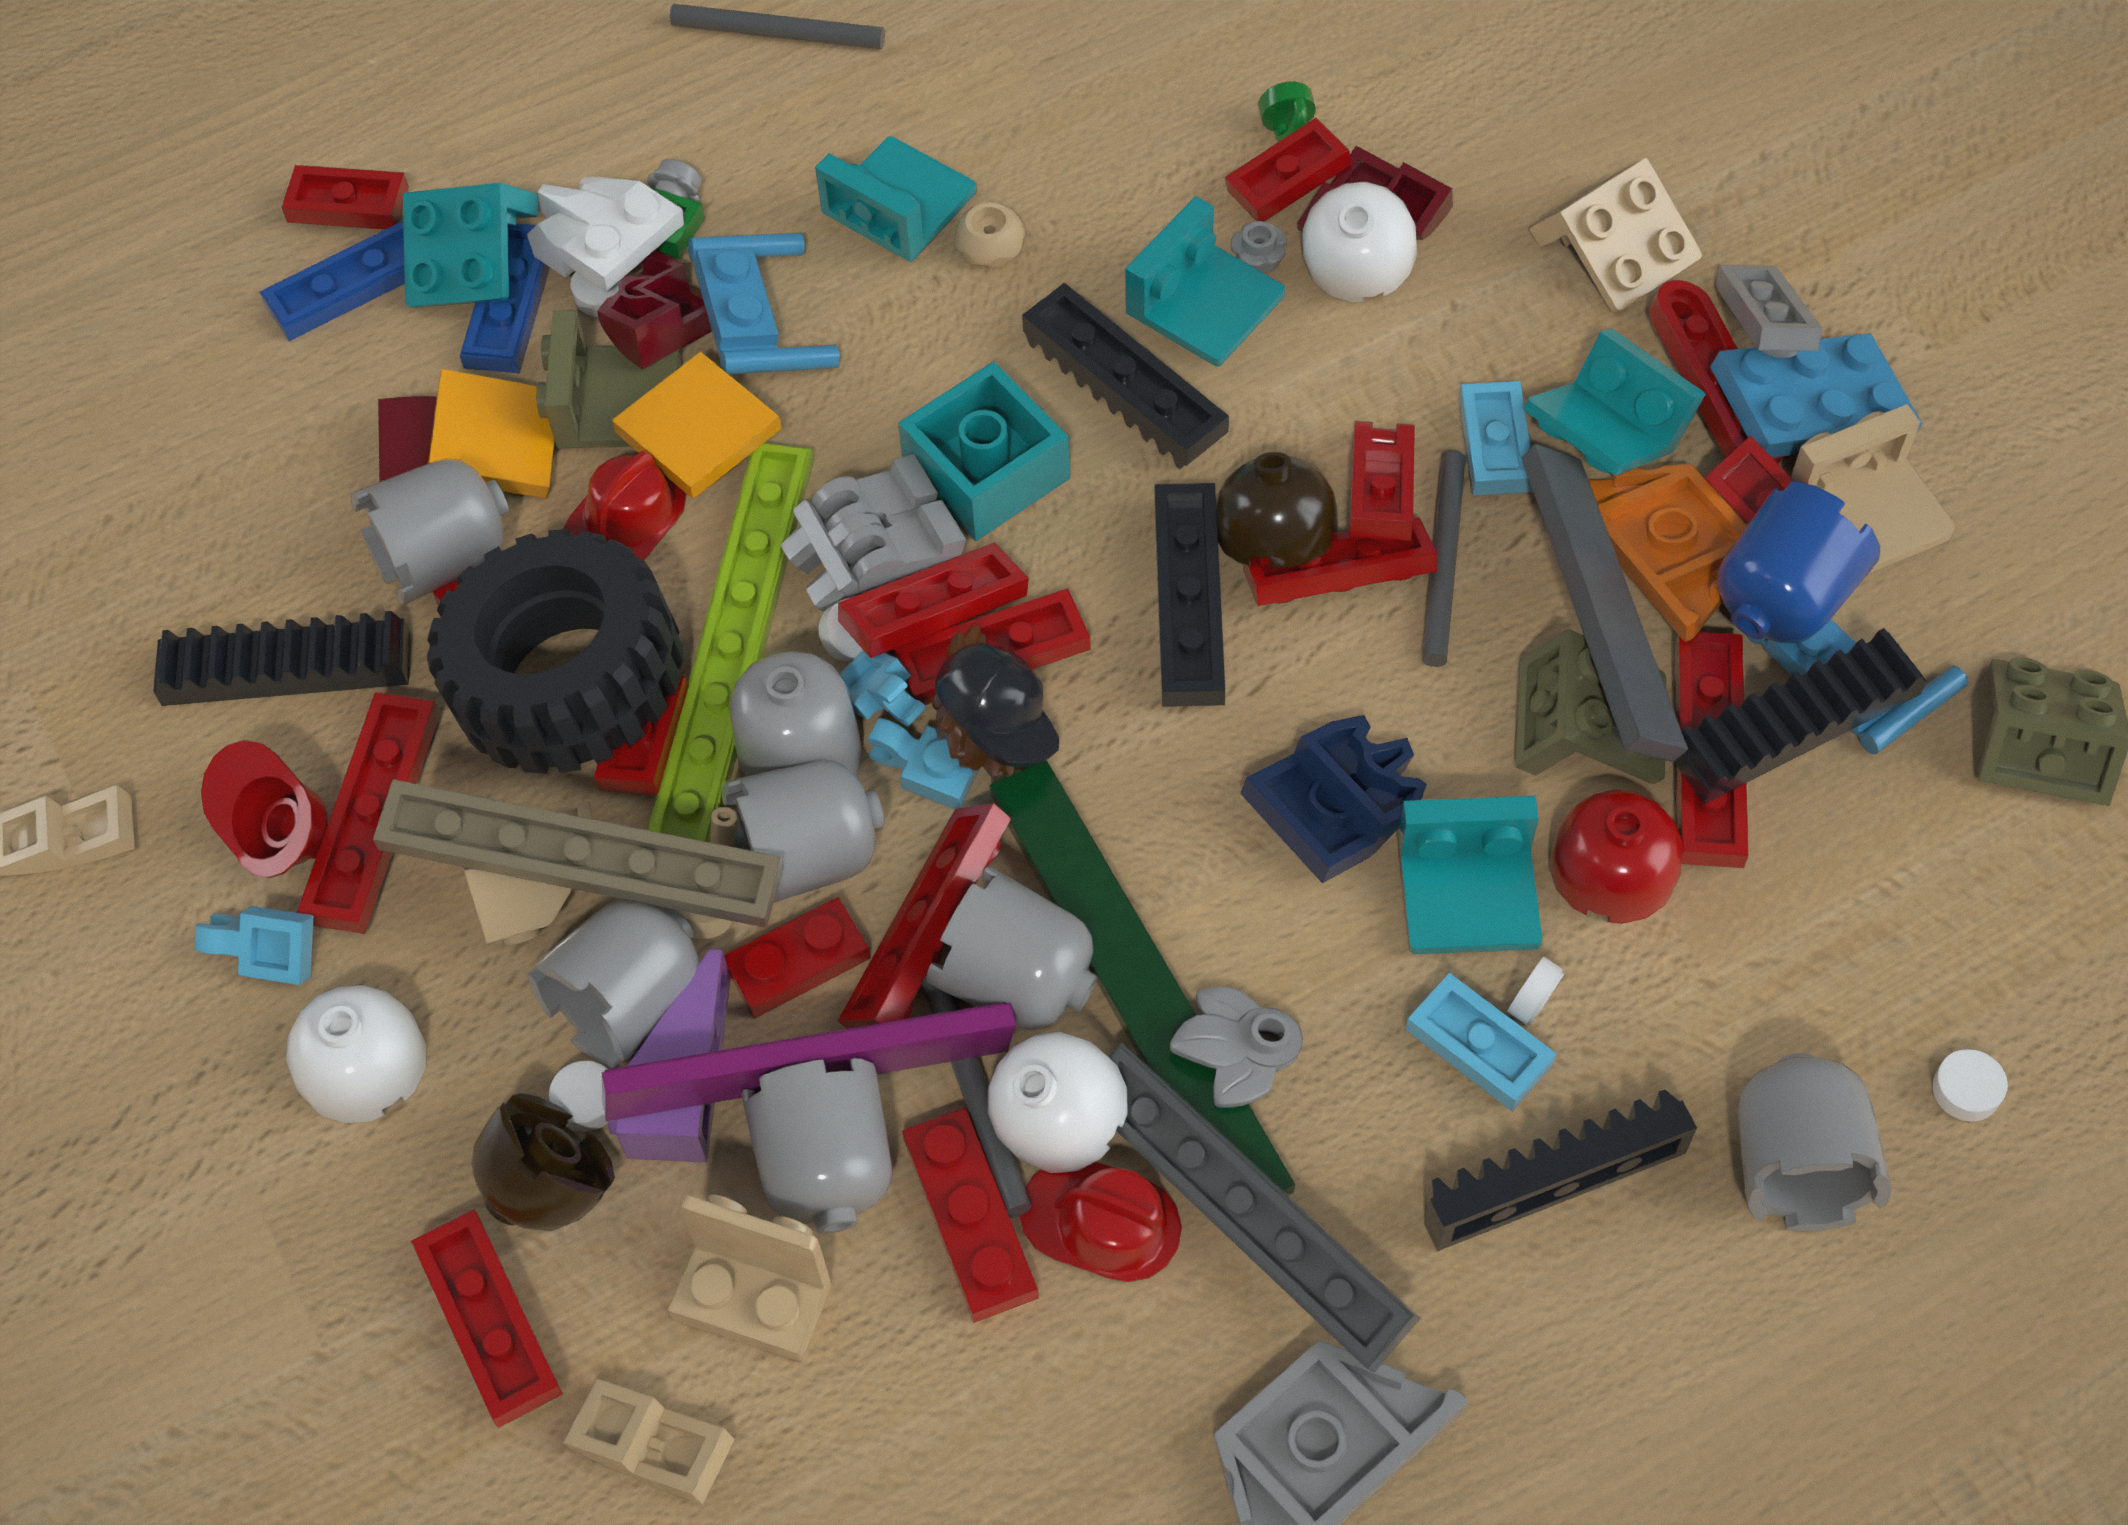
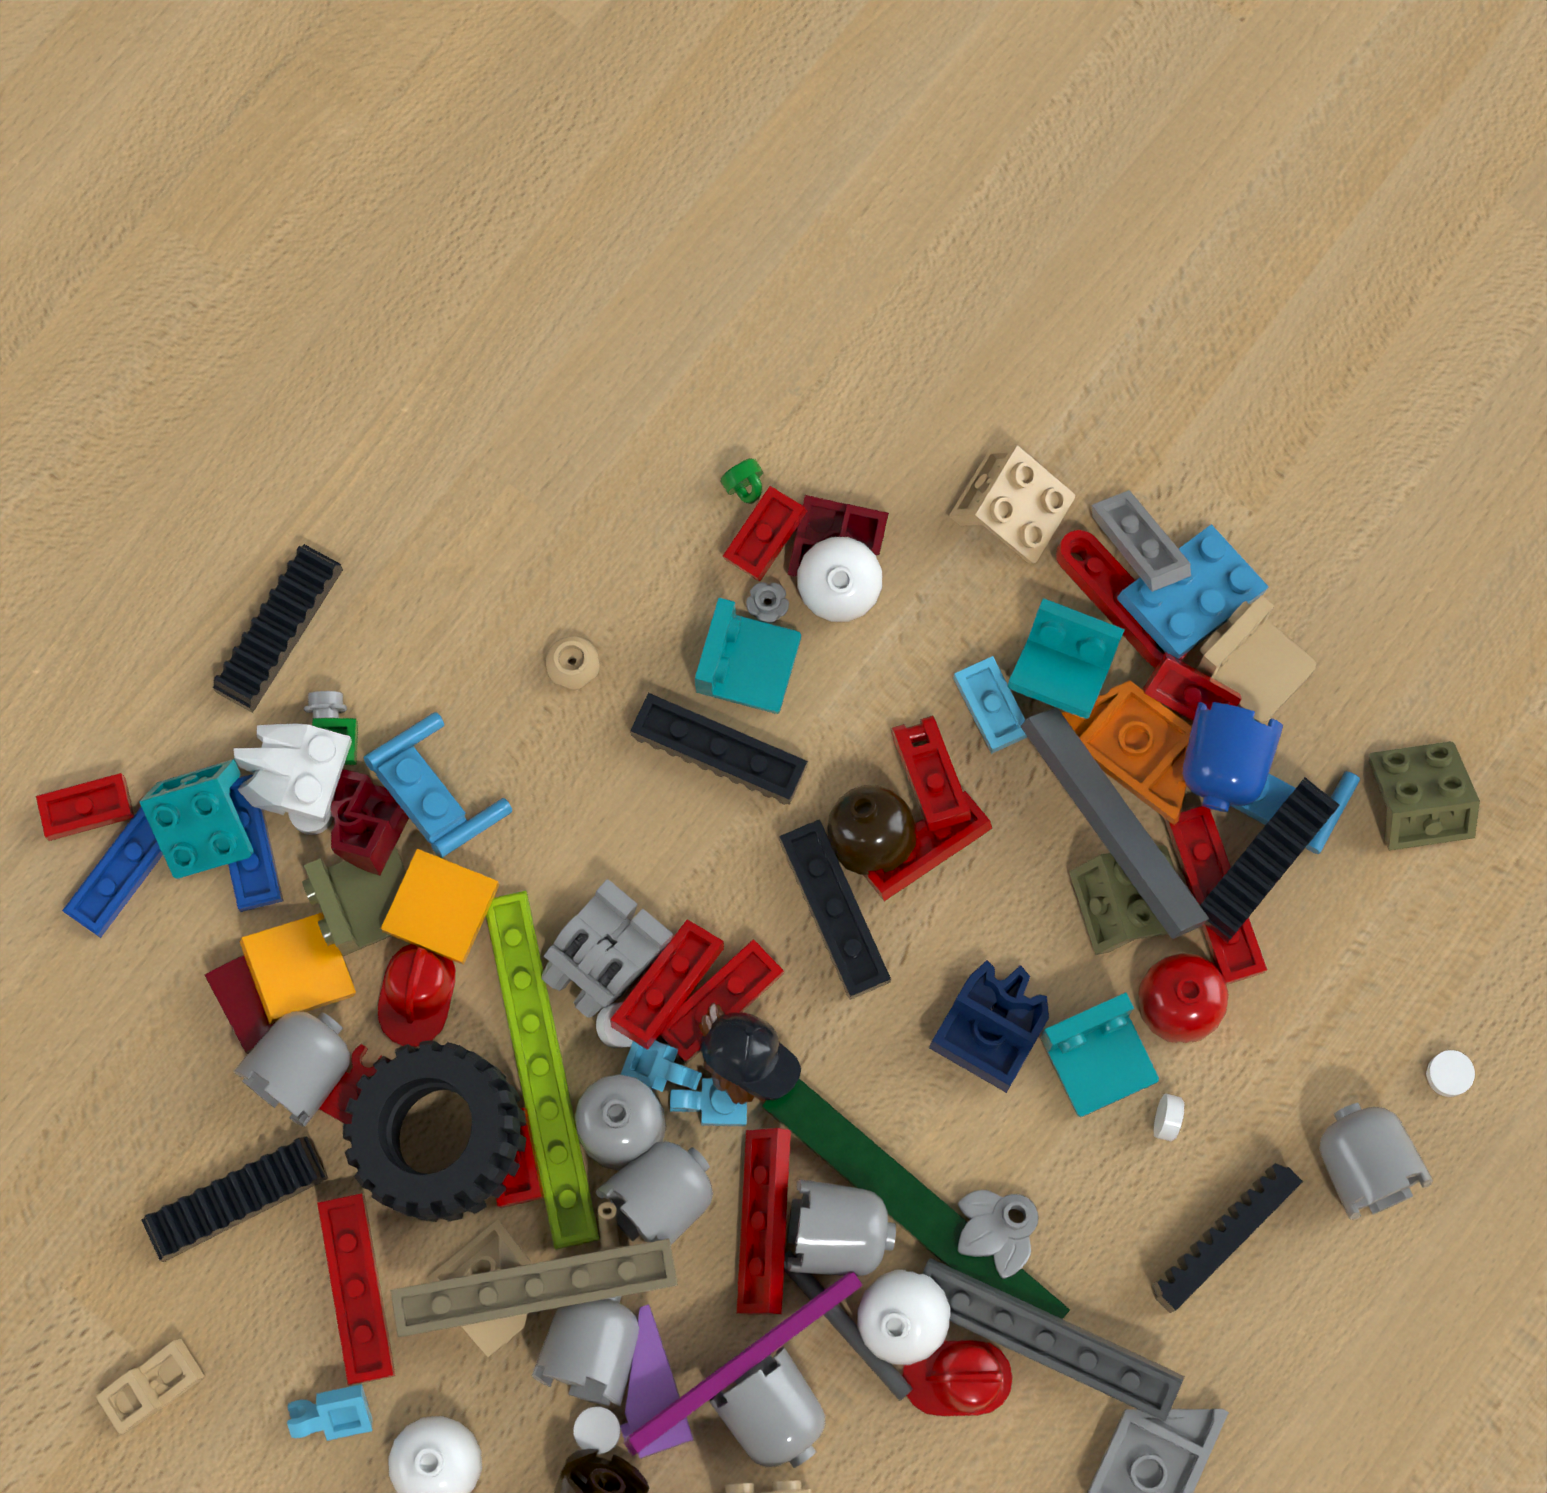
camera: 25 degrees left, 15 degrees up
(262, 809) = (289, 1324): red piece -> none
(662, 96) = (277, 628): none -> black gear
(777, 26) = (333, 532): dark grey bar -> none
(796, 957) = (696, 1271): red plate -> none
(893, 196) = (493, 655): teal bracket -> none
(970, 1215) = (877, 1409): red plate -> none
(987, 450) = (653, 854): teal brick -> none
(1446, 544) = (989, 806): dark grey bar -> none
(1480, 1041) = (1147, 1165): medium azure plate -> none

